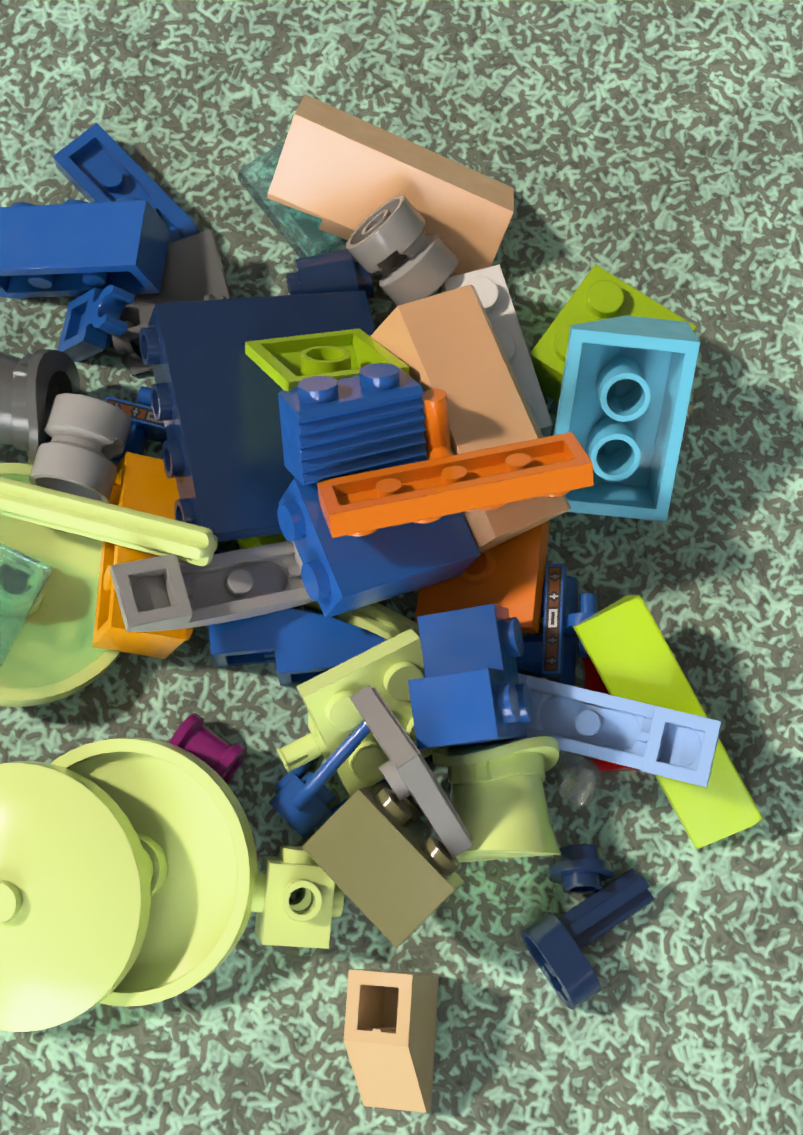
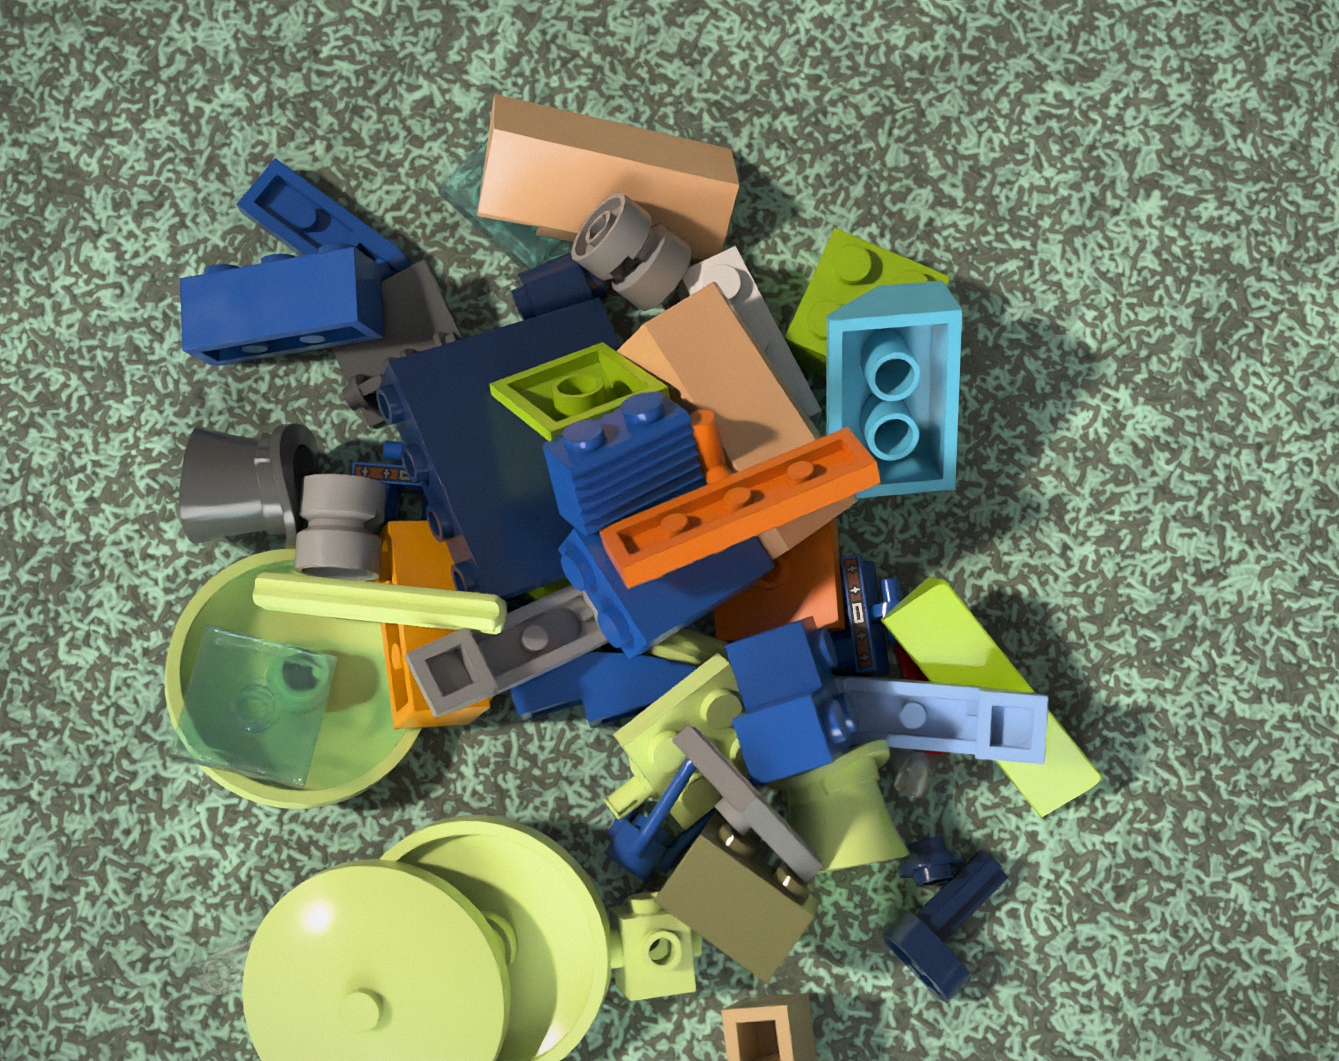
camera: 10 degrees left, 5 degrees up
(93, 321) = (318, 381): blue plate -> none
(209, 747) = (532, 808): magenta bush -> none

